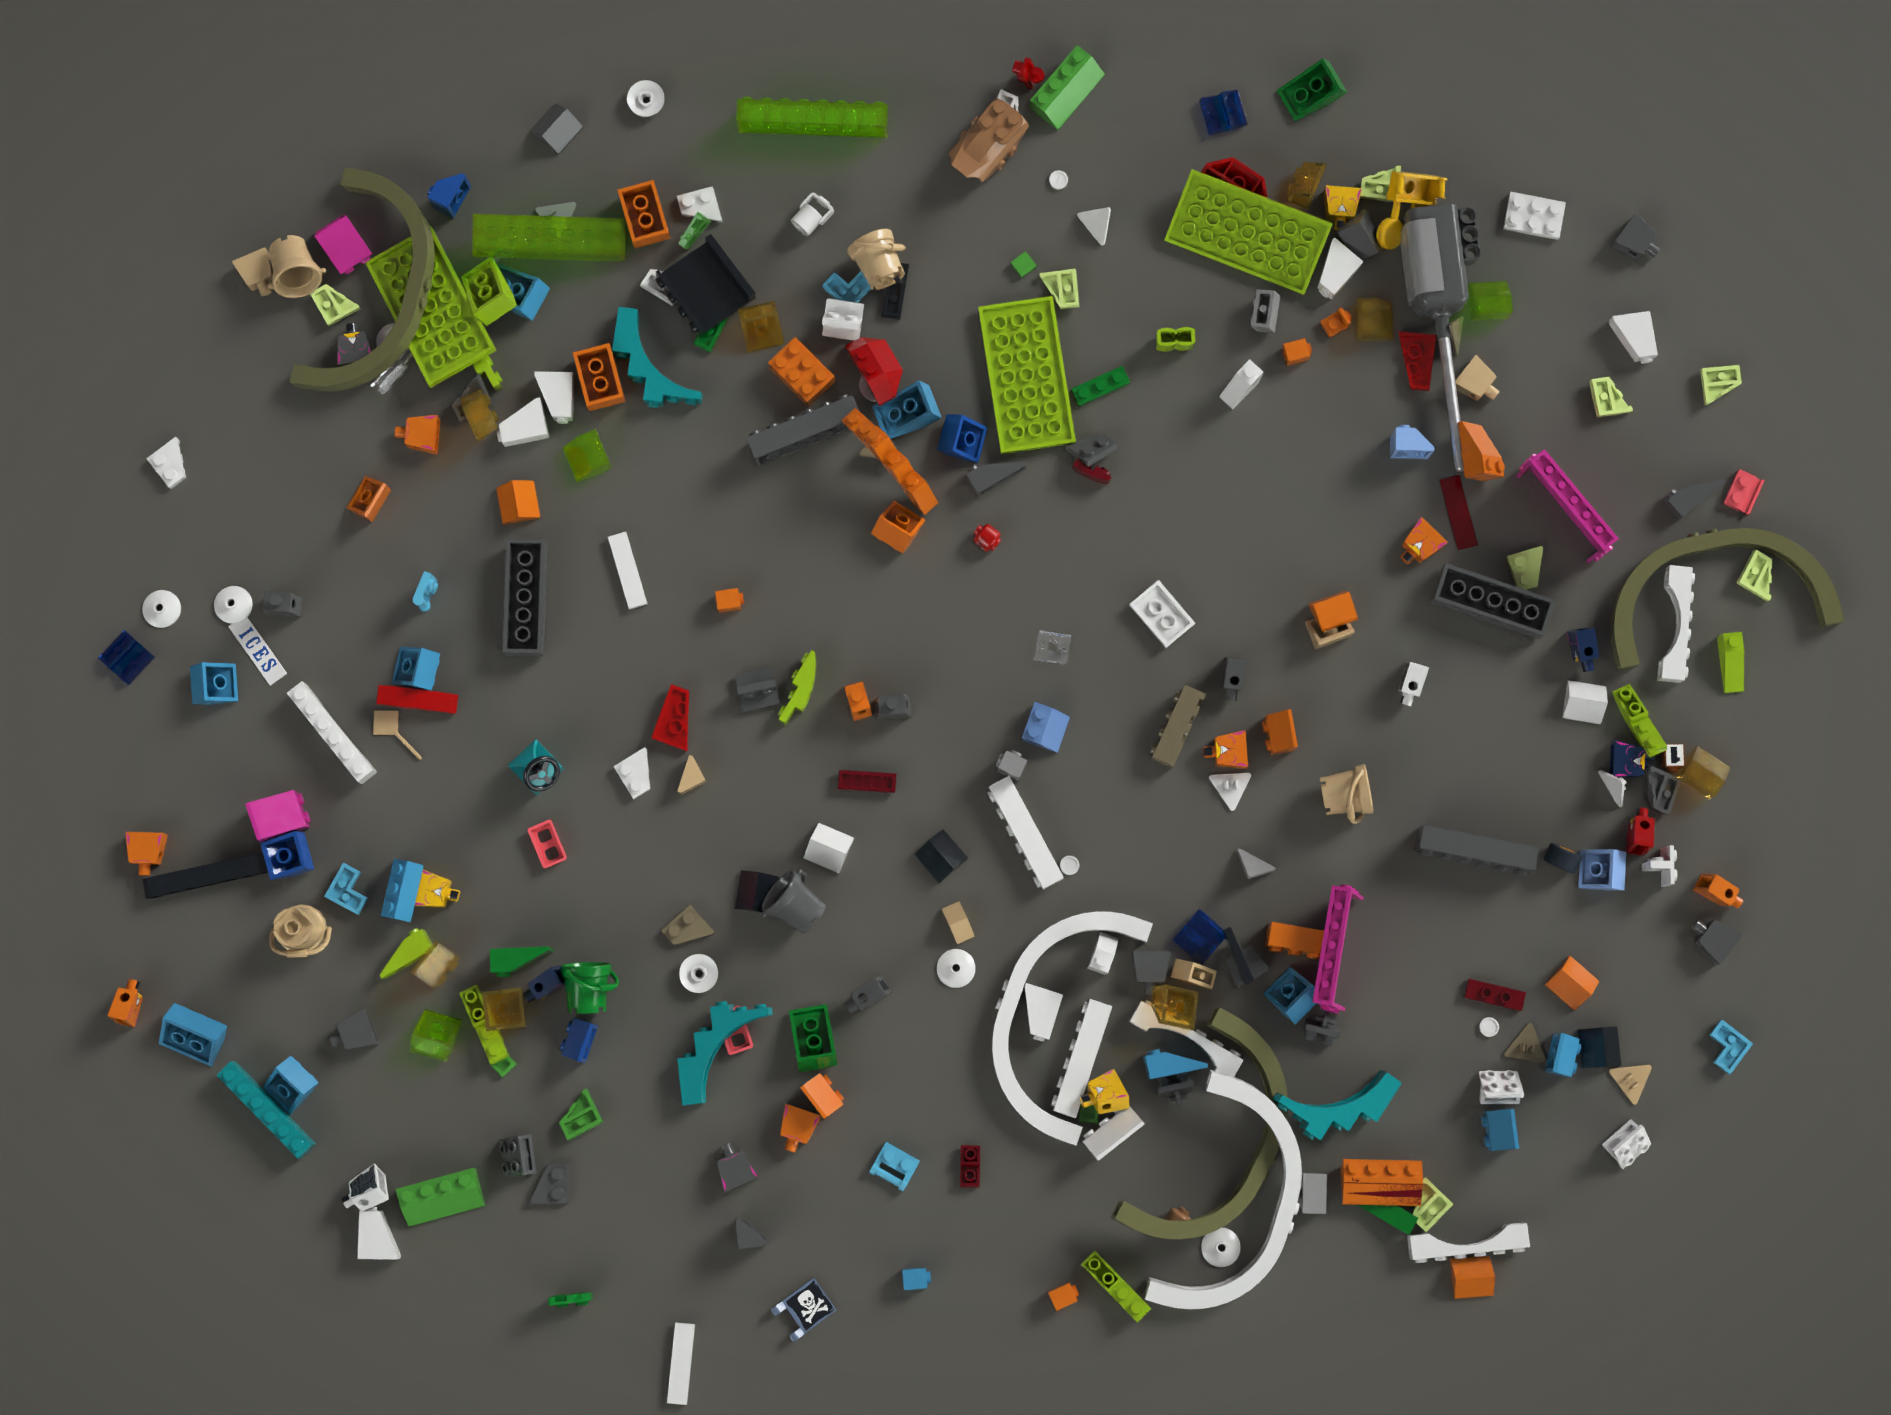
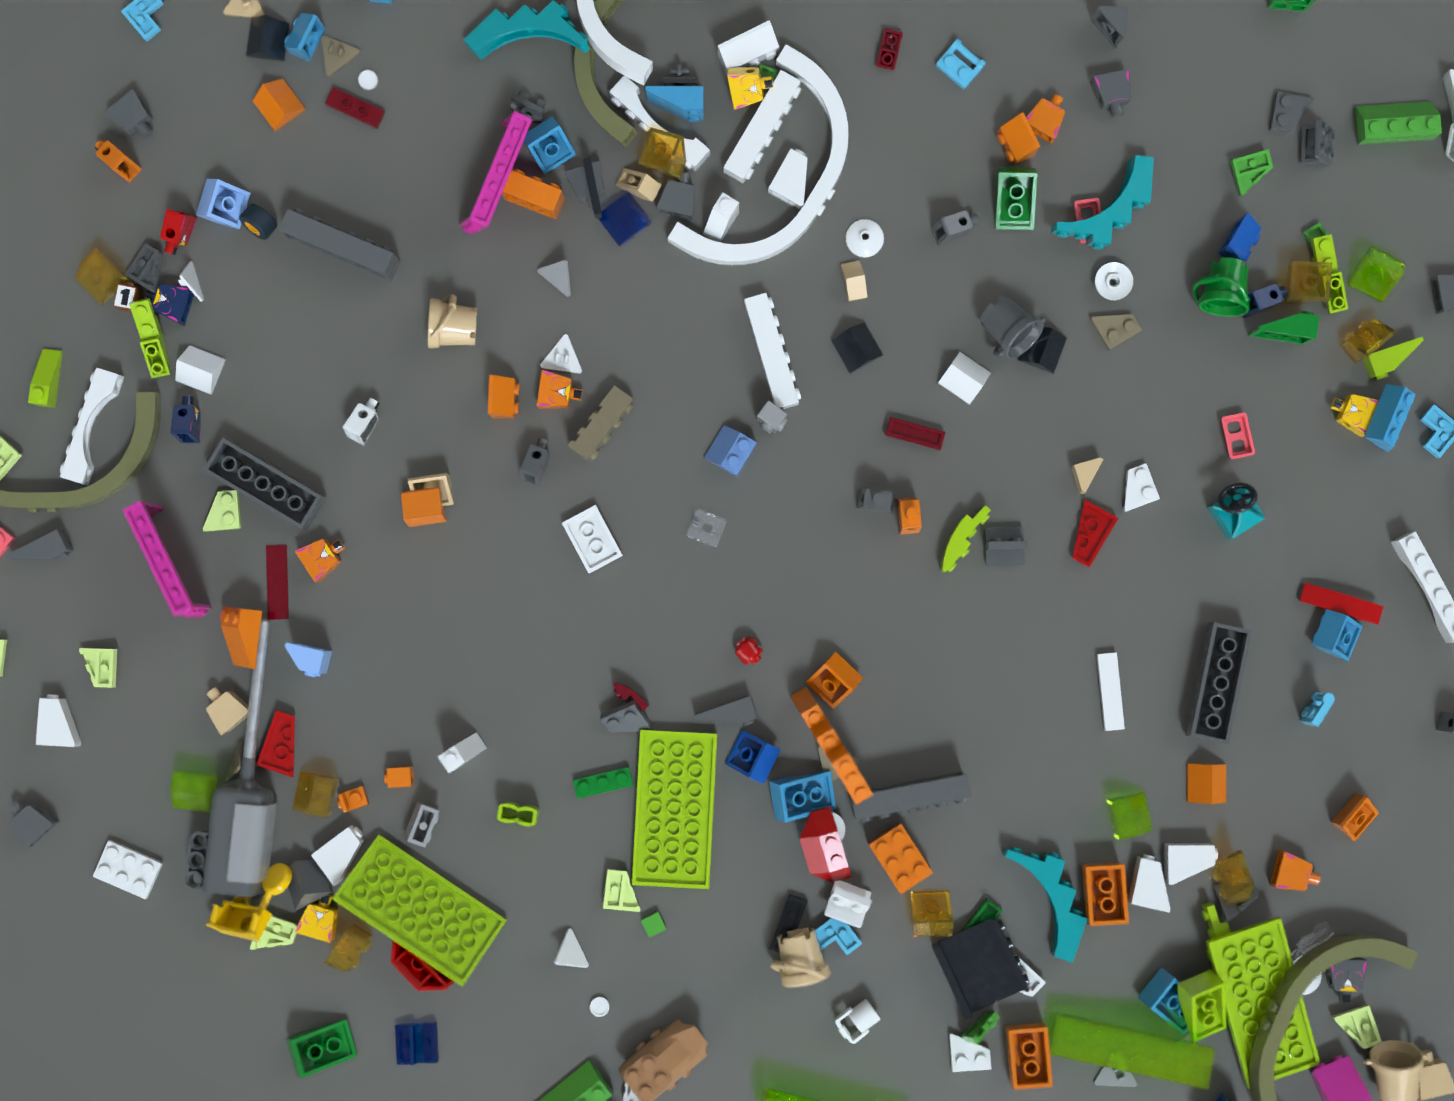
camera: 165 degrees left, 5 degrees up
(387, 724) = (1373, 587): tan piece -> none
(729, 600) = (1016, 640): orange brick -> none
(1069, 865) = (735, 314): white piece -> none
(1500, 1087) = (370, 19): white bracket -> none
(1665, 864) = (162, 193): white bracket -> none

